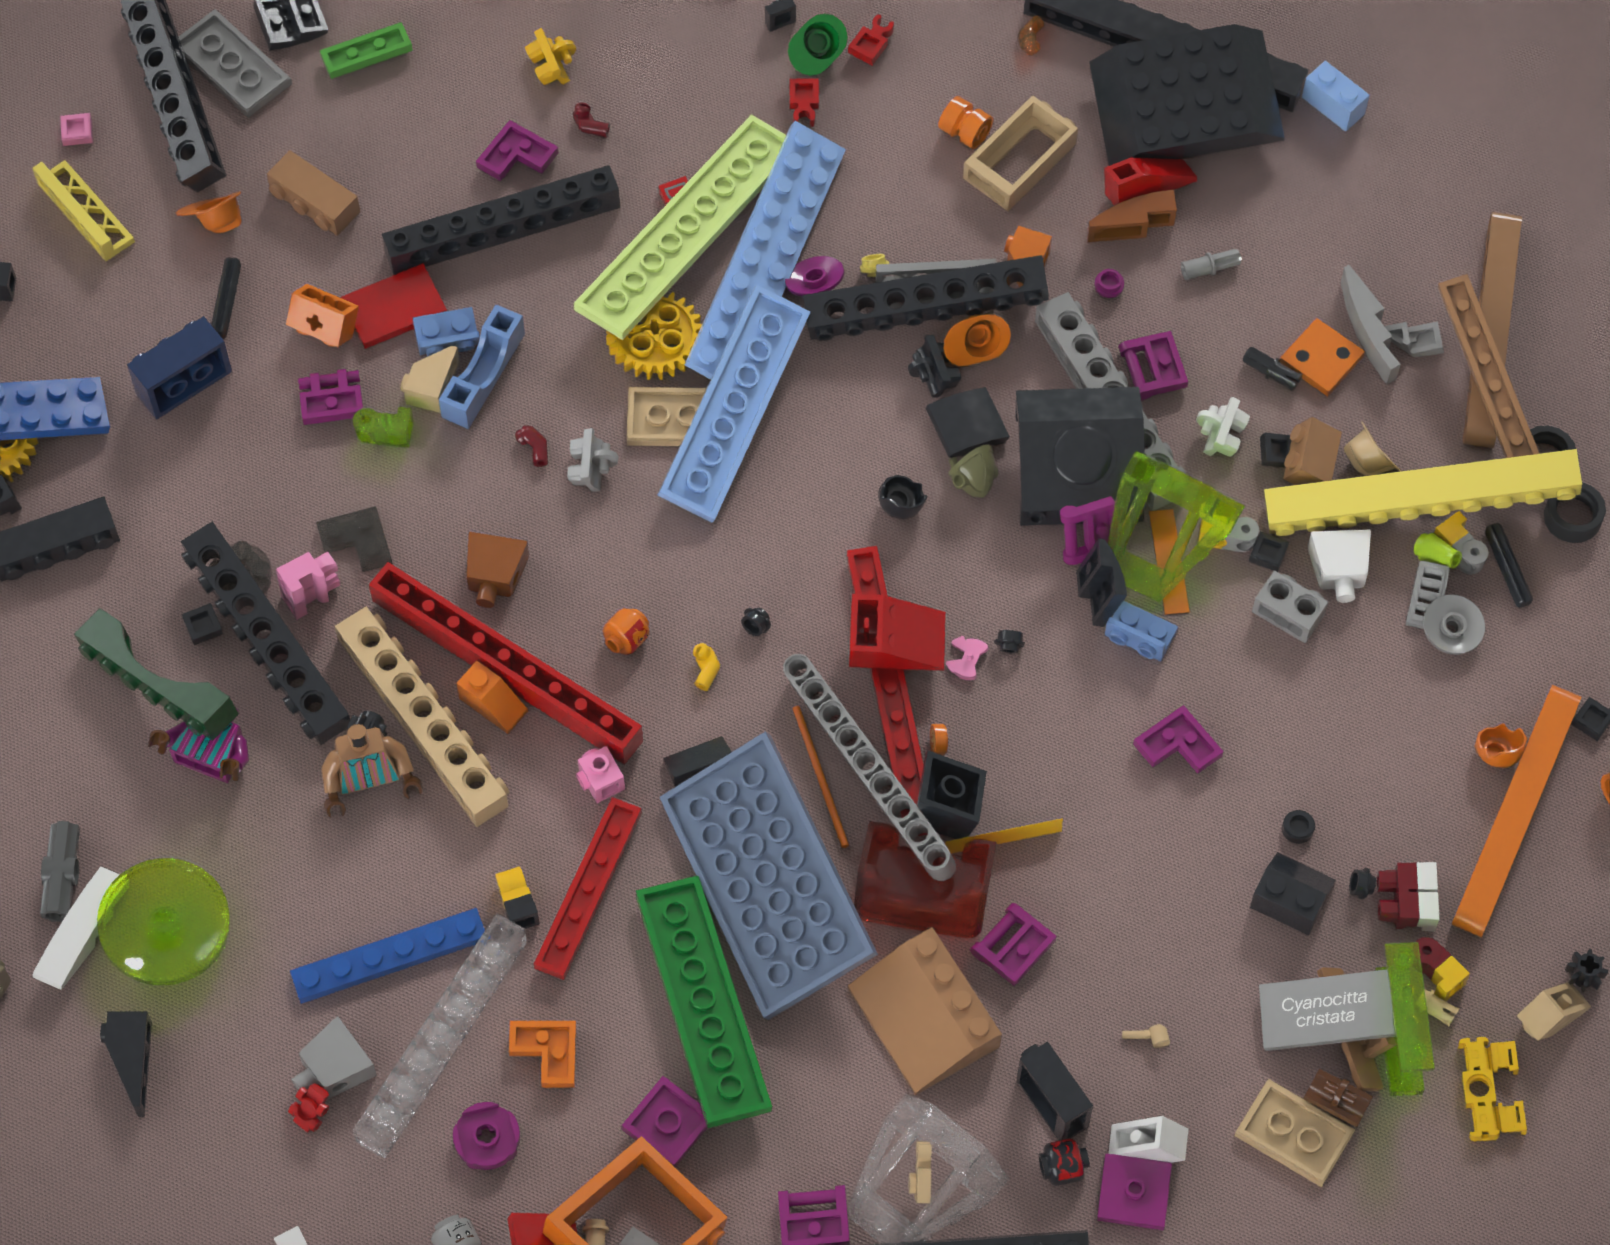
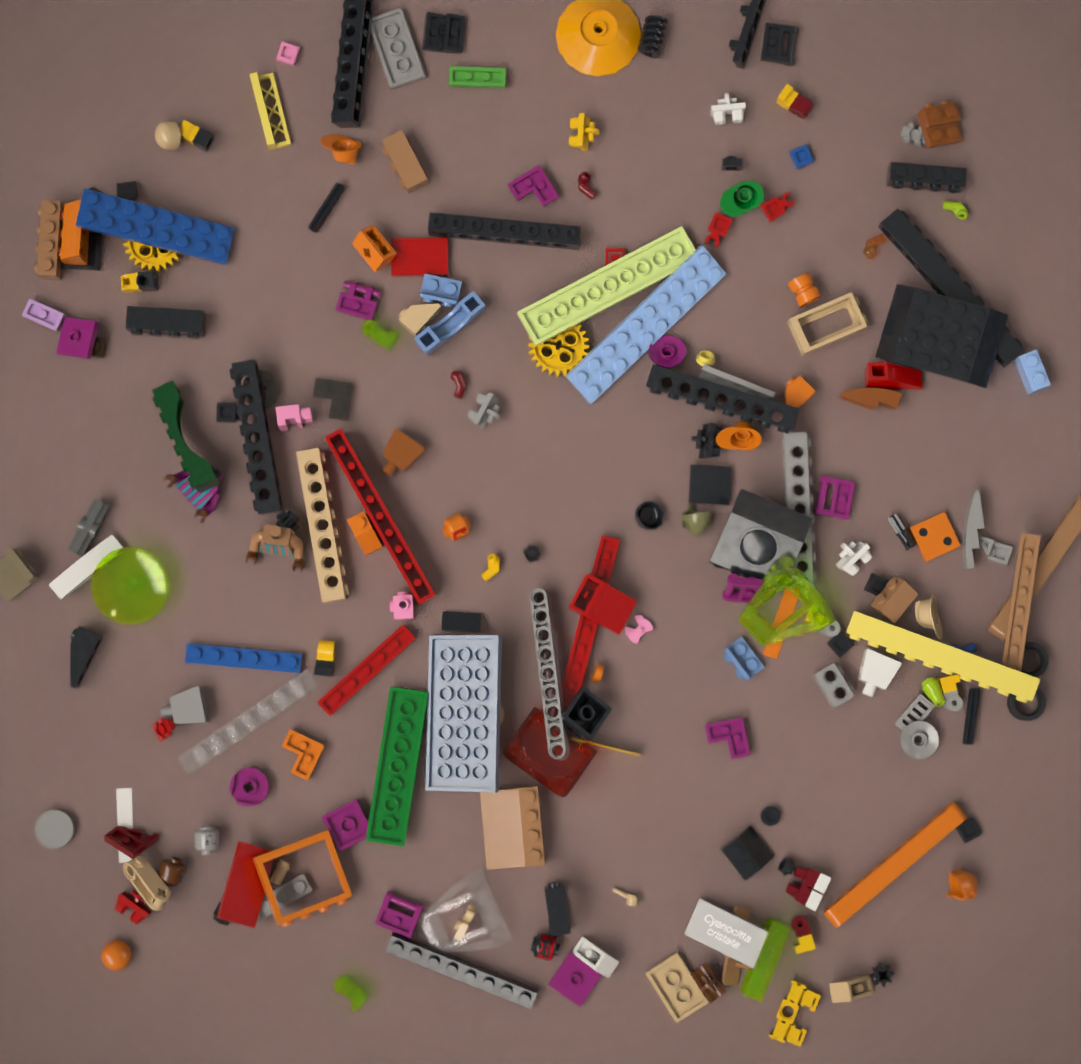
camera: 25 degrees right, 20 degrees up
(179, 367) = (278, 246): dark blue brick -> none
(660, 414) = (545, 402): tan tile -> none
(733, 403) = (581, 414): light blue plate -> none
(820, 777) = (523, 662): orange axle -> none
(1009, 641) = (666, 631): black plate -> none
(1021, 950) = (582, 817): magenta plate -> none
(1101, 582) = (734, 621): black slope -> none
(1109, 283) = (836, 433): magenta plate -> none
(1210, 264) = (901, 447): light grey axle -> none
(1439, 1008) = (789, 955): tan pin -> none
(1500, 745) = (905, 824): orange hair -> none

